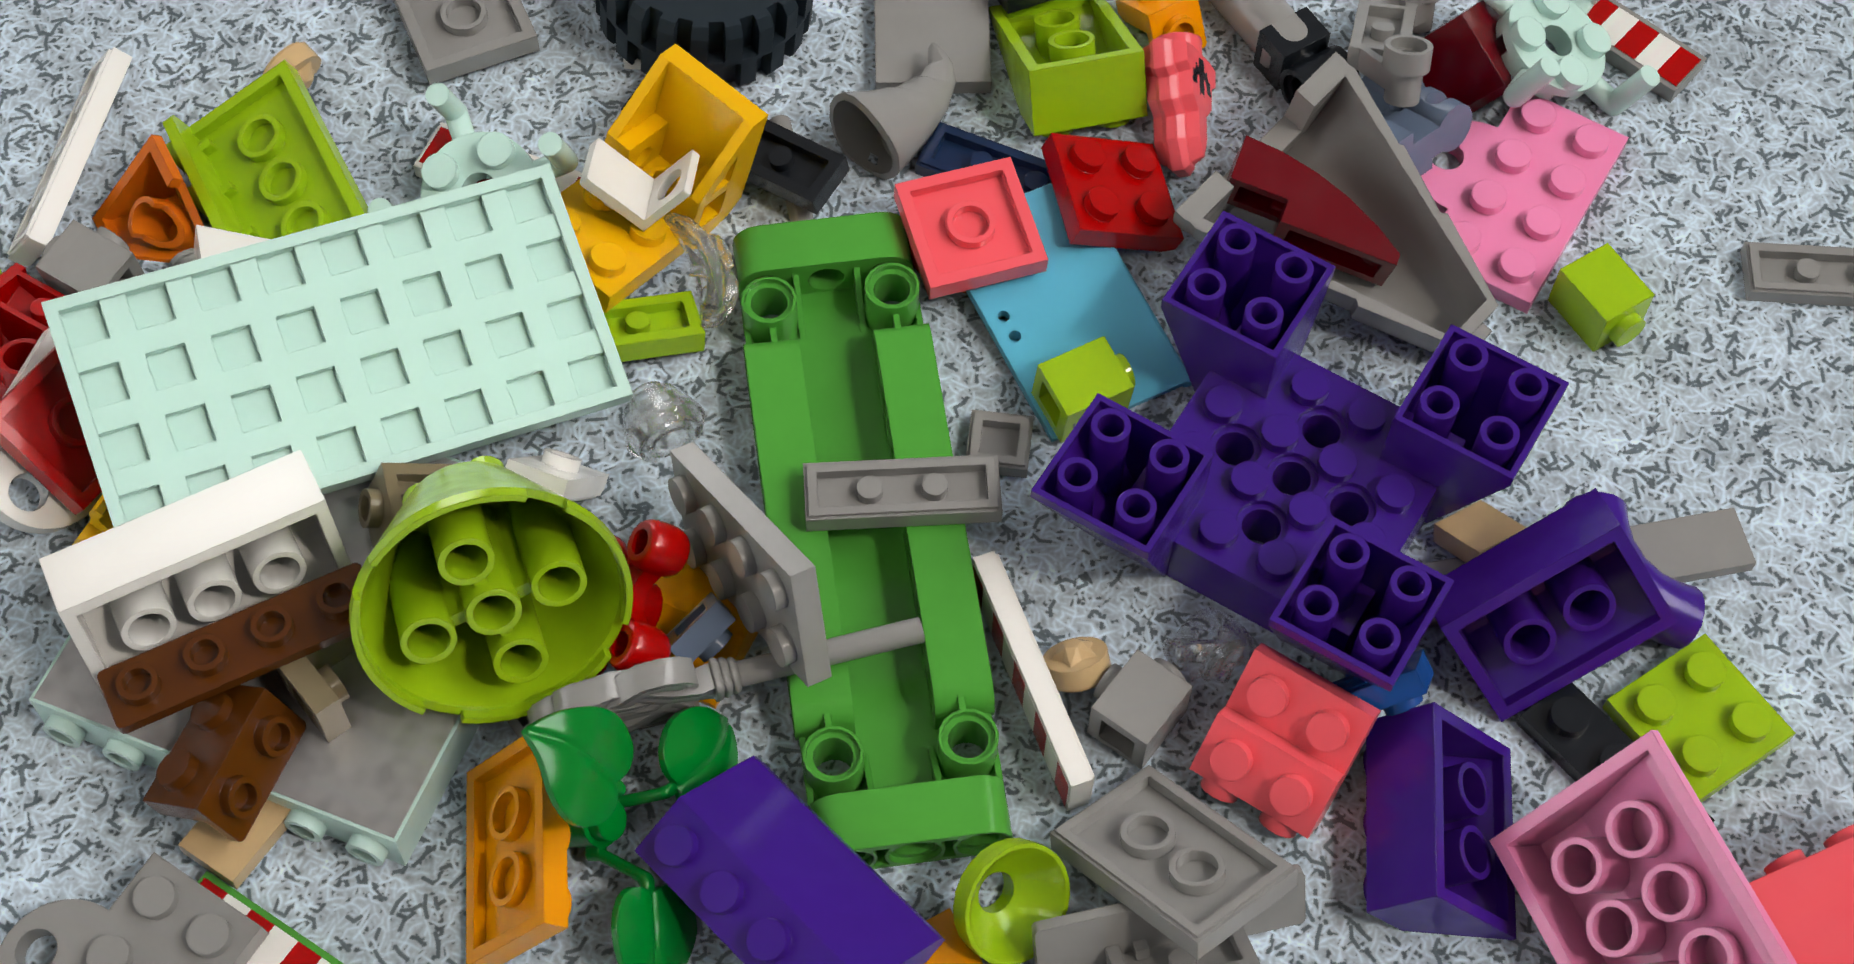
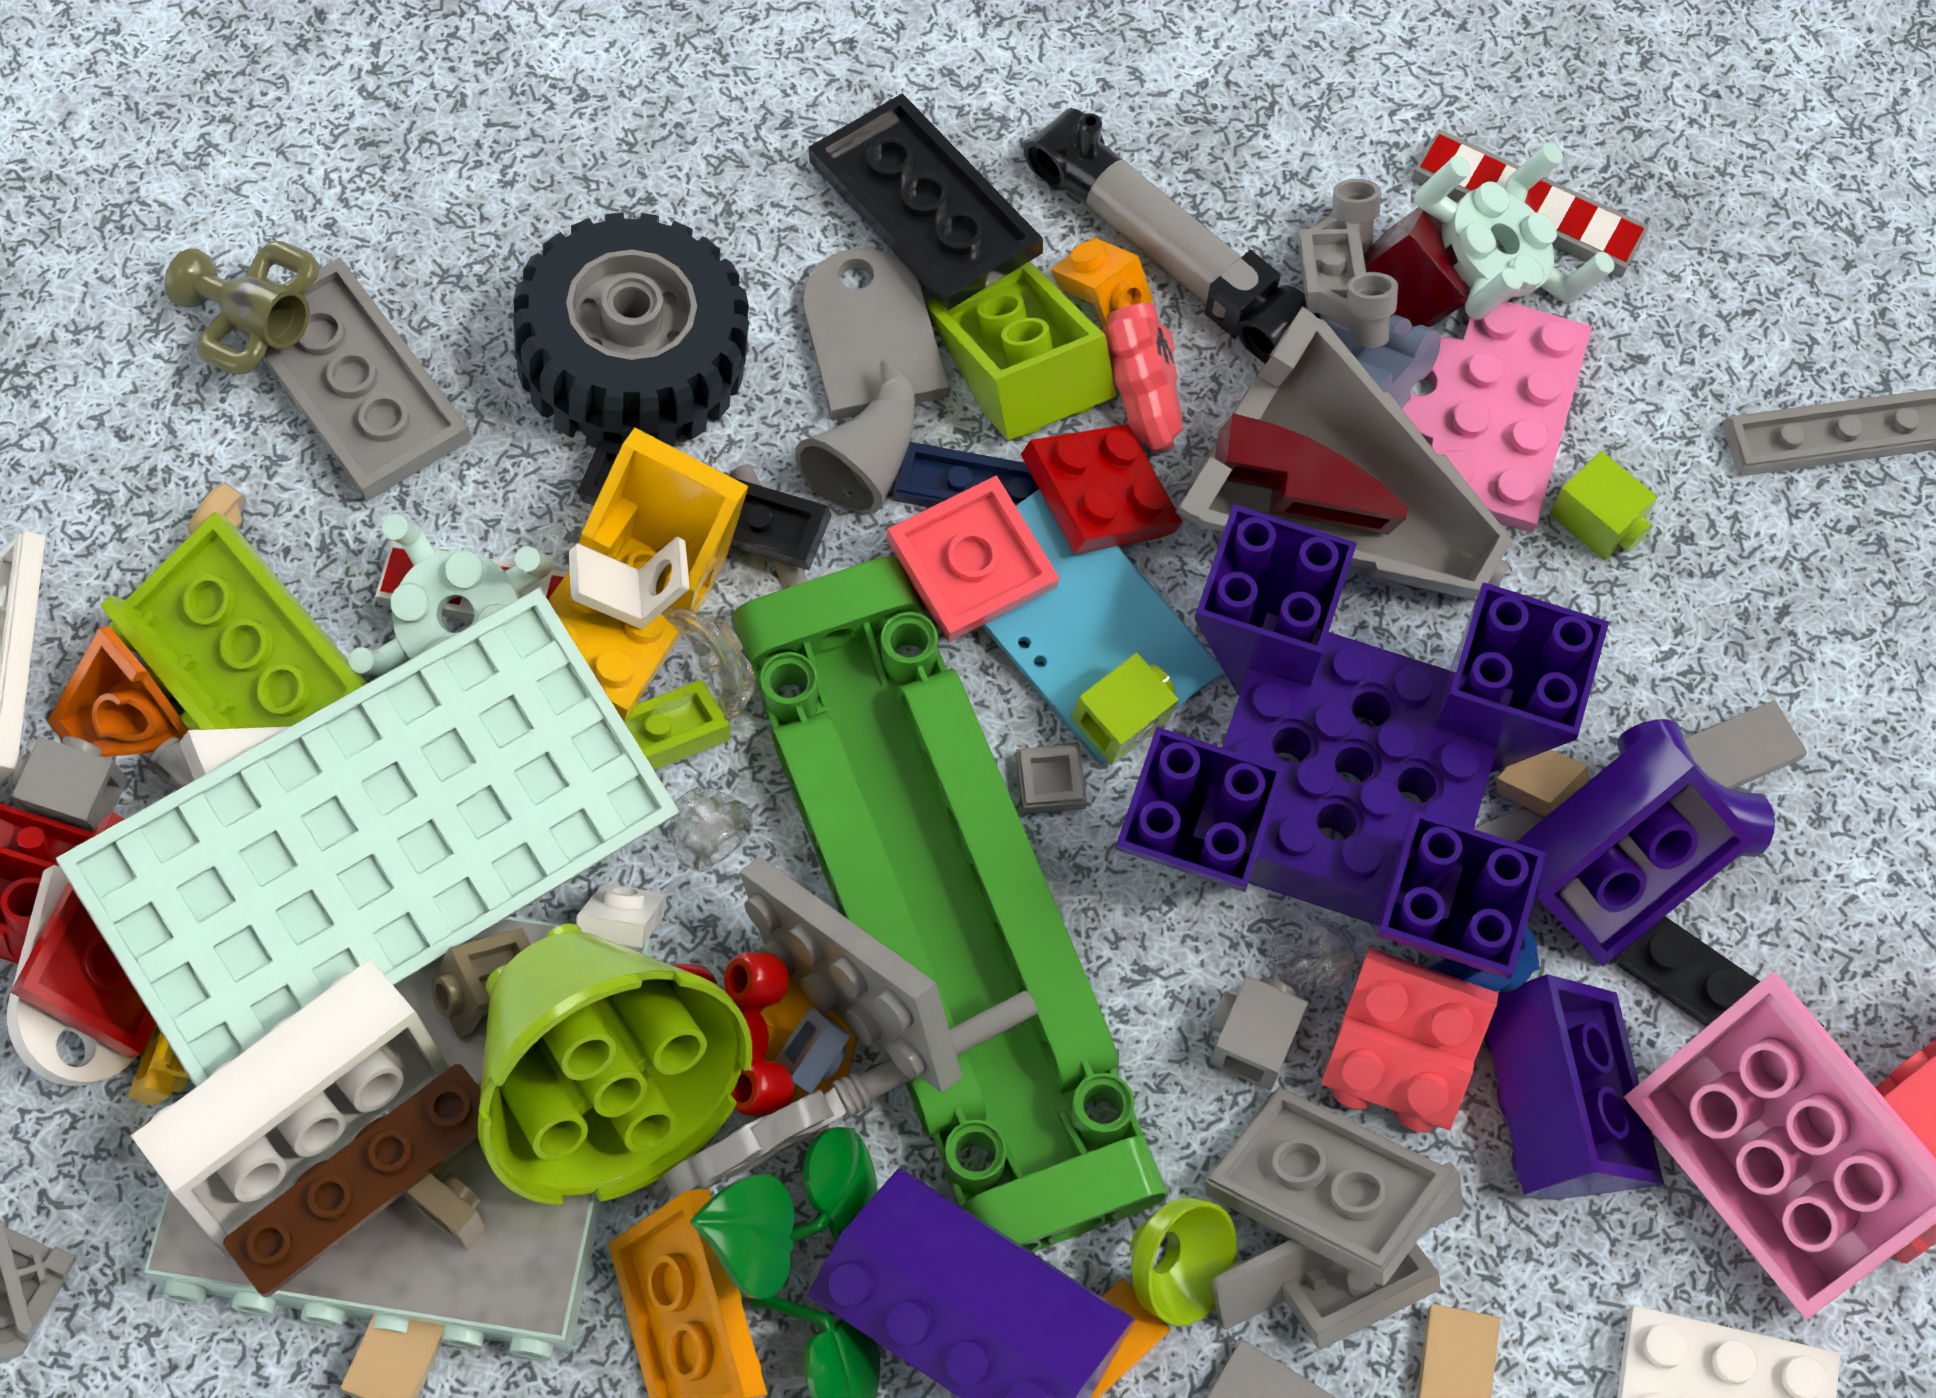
camera: 15 degrees left, 5 degrees up
(227, 760) = (372, 1297): reddish brown bracket -> none
(902, 492) = (976, 860): light grey tile -> none
(1033, 682) = (1148, 1027): white tile -> none
(1077, 663) = (1185, 998): tan tile -> none
(1704, 714) = (1787, 921): lime plate -> none

